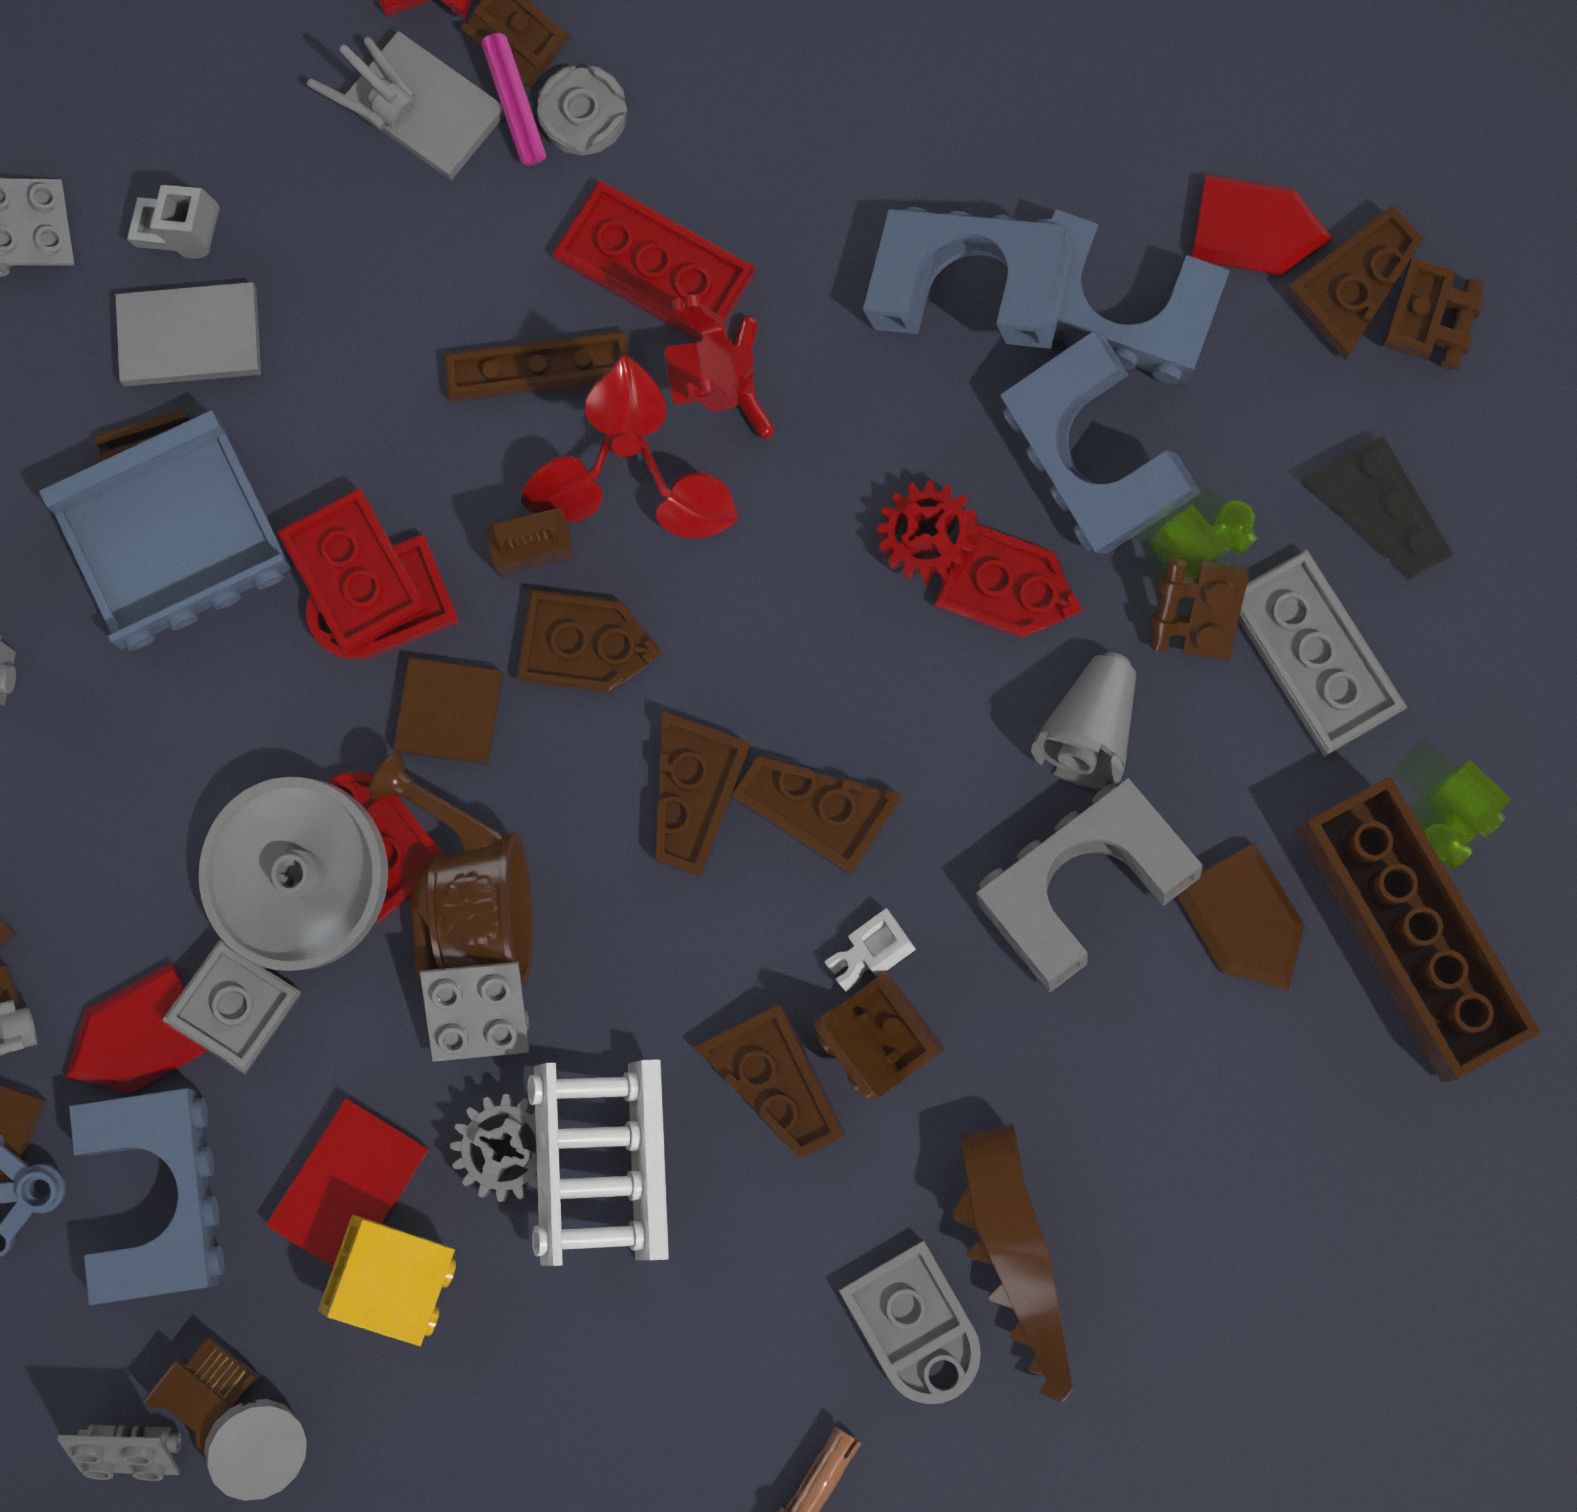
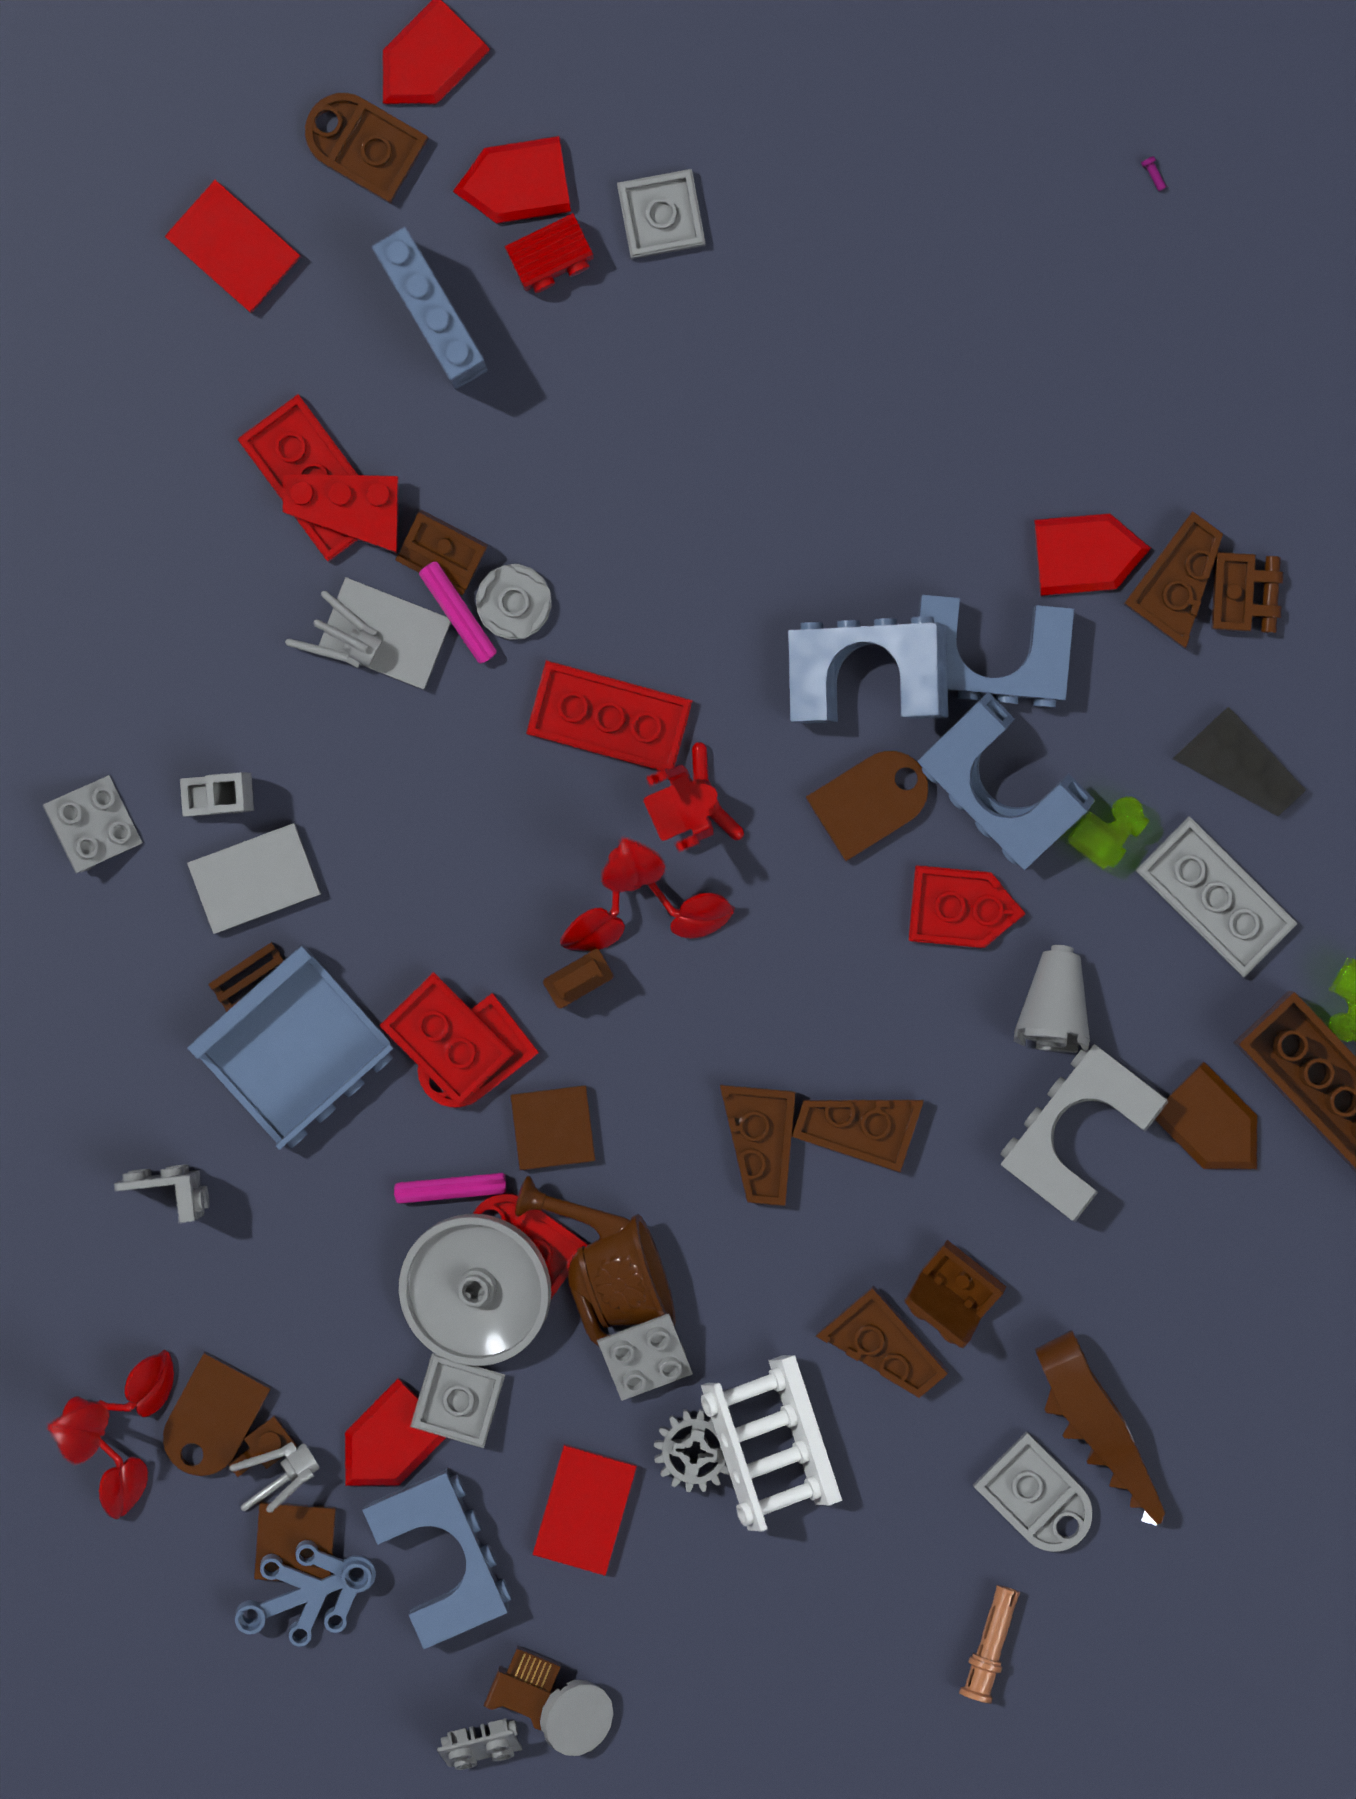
camera: 20 degrees left, 10 degrees up
(304, 749) = (450, 1188): none -> dark pink axle
(388, 1281) = (638, 1572): yellow brick -> none
(532, 366) = (541, 829): reddish brown tile -> none
(582, 643) = (641, 1045): reddish brown tile -> none
(877, 946) = (934, 1224): white plate -> none
(914, 546) = (874, 876): red gear -> none
(929, 435) = (867, 802): none -> reddish brown tile
(1213, 611) = (1127, 888): reddish brown plate -> none

